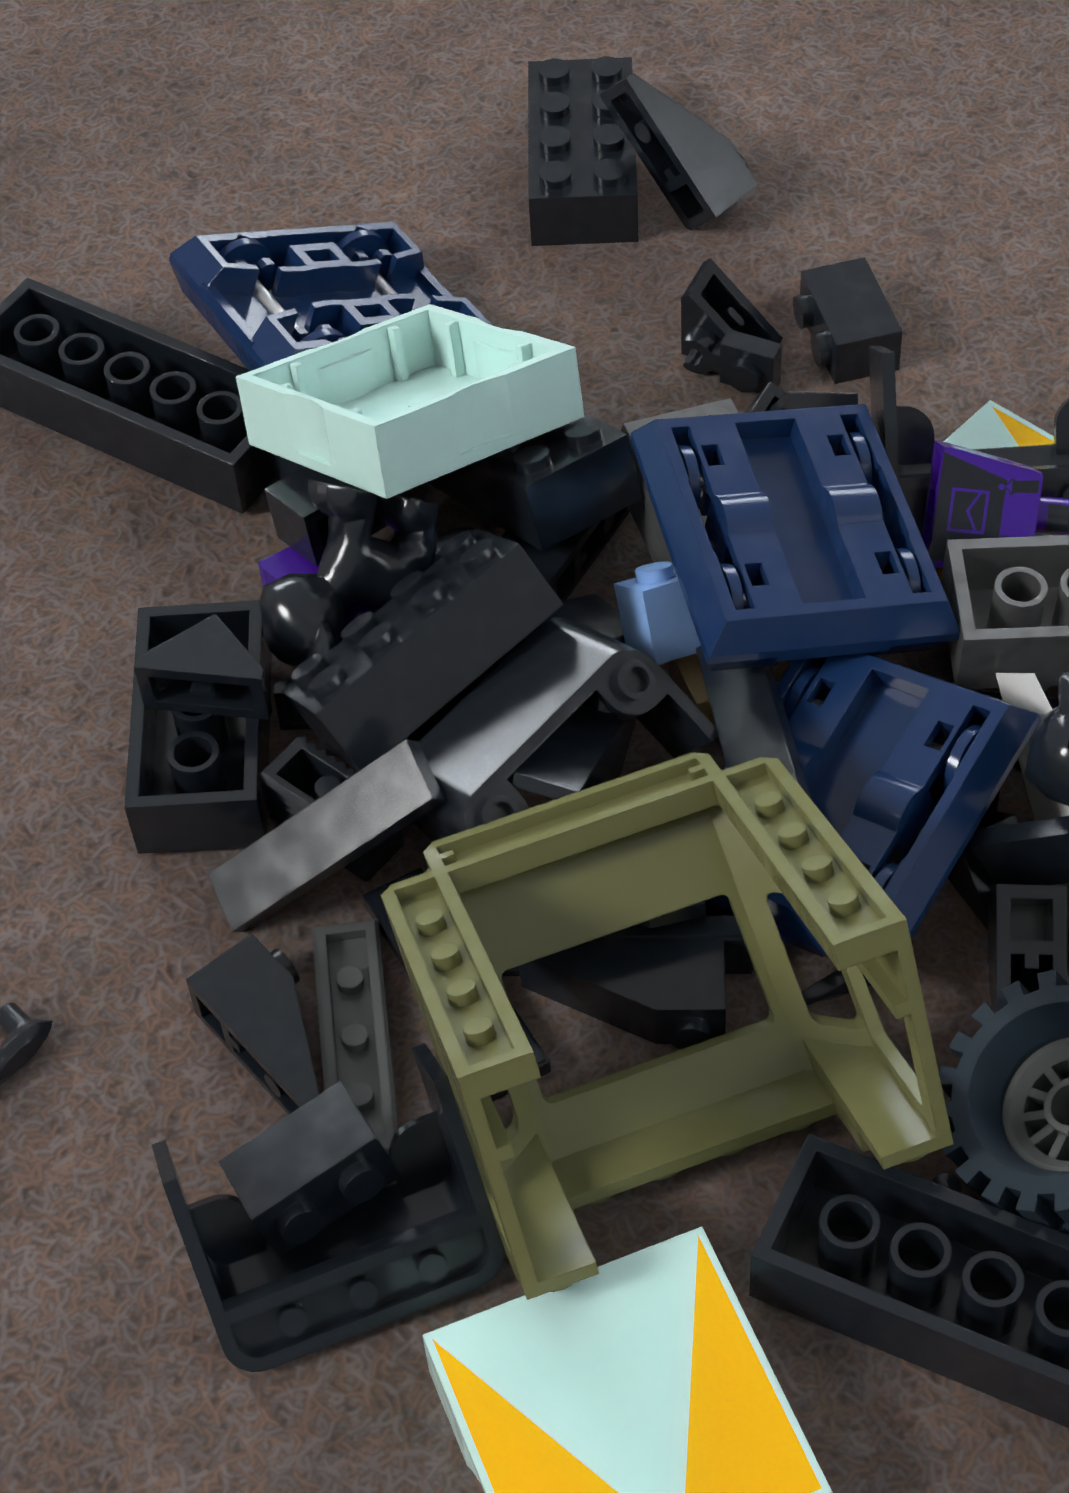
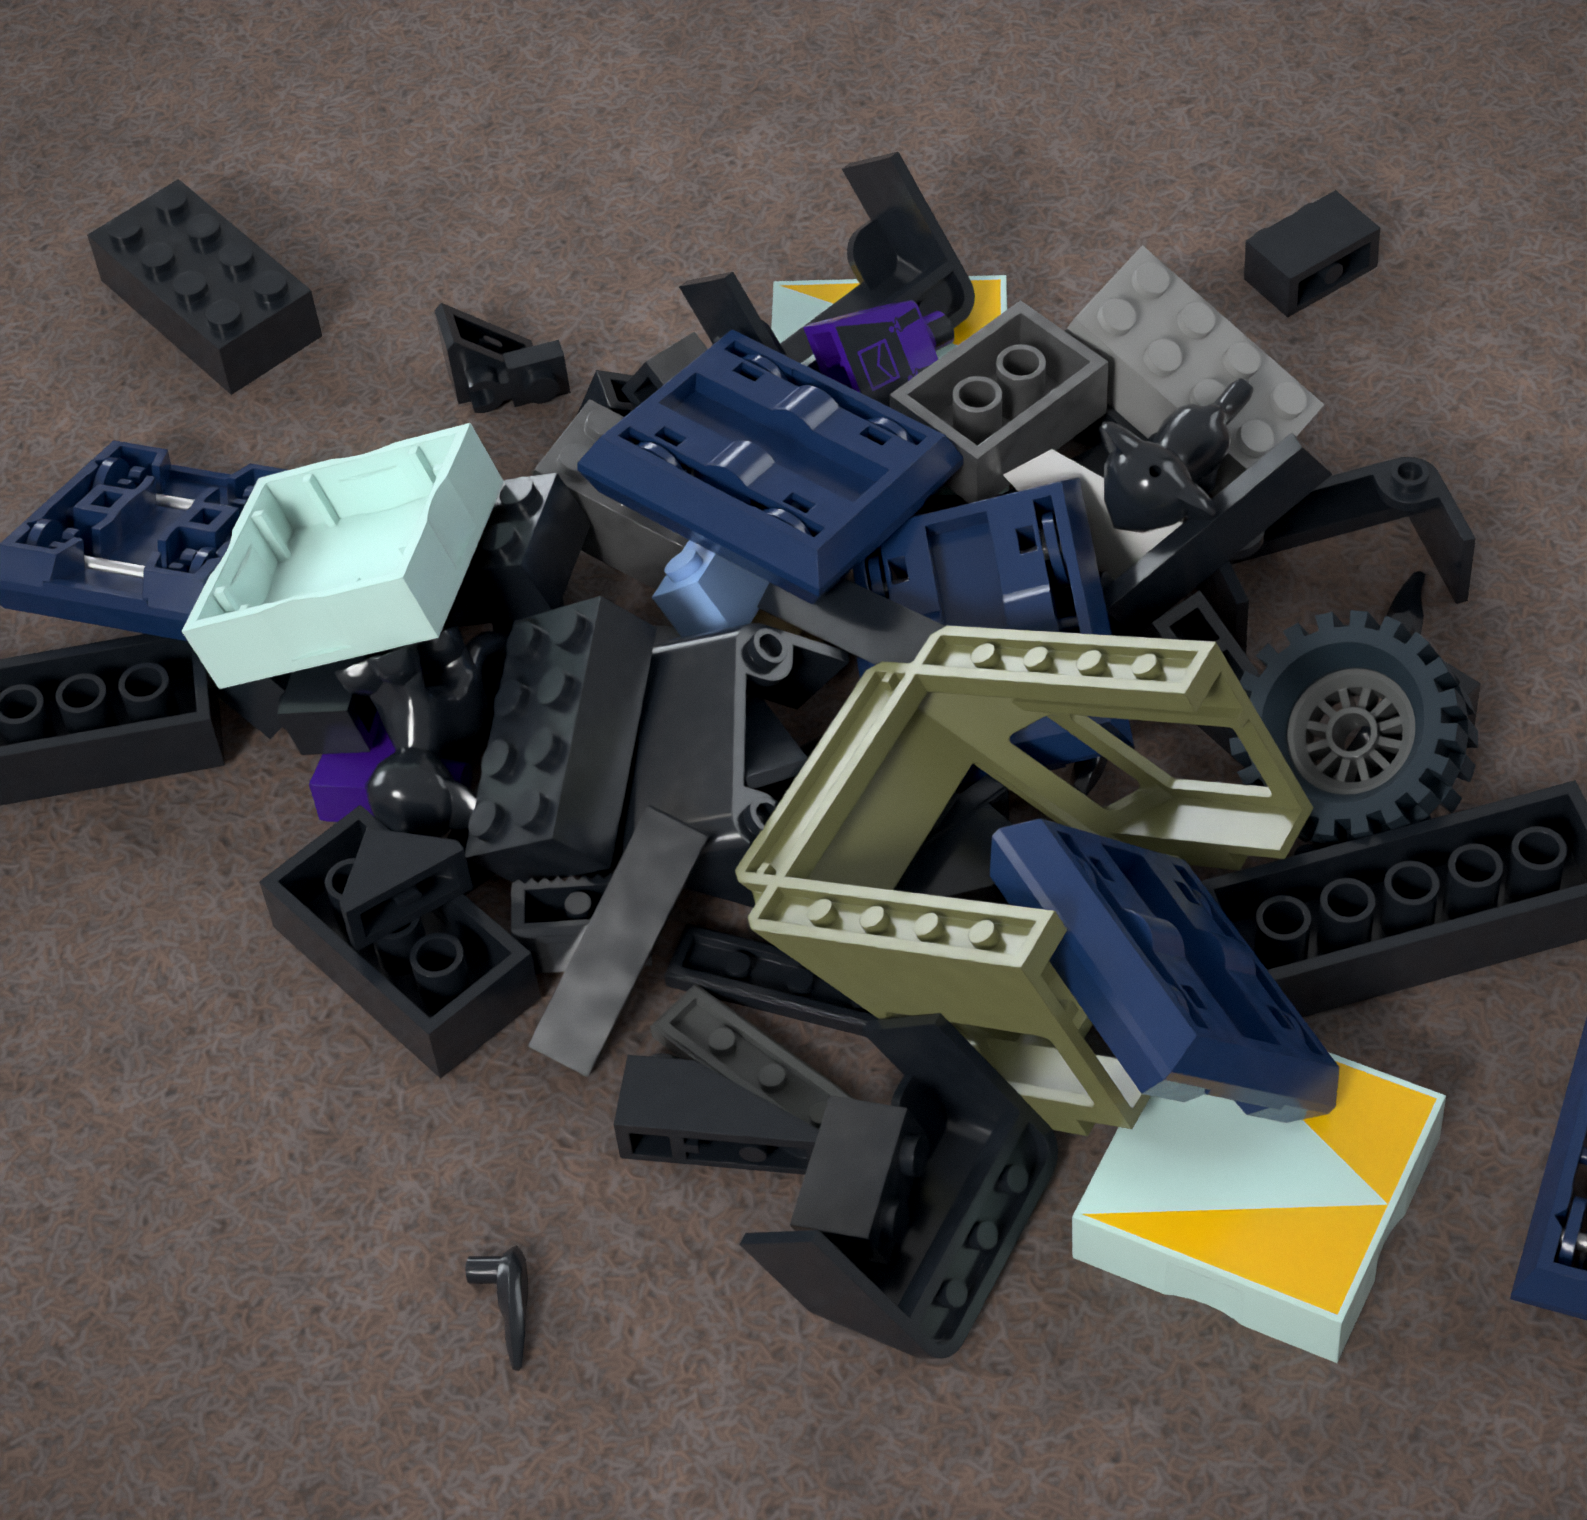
camera: 40 degrees left, 0 degrees up
(652, 1207) = (1165, 973): none -> dark blue piece
(683, 154) = (311, 233): black slope -> none
(845, 317) = (580, 291): black brick -> none

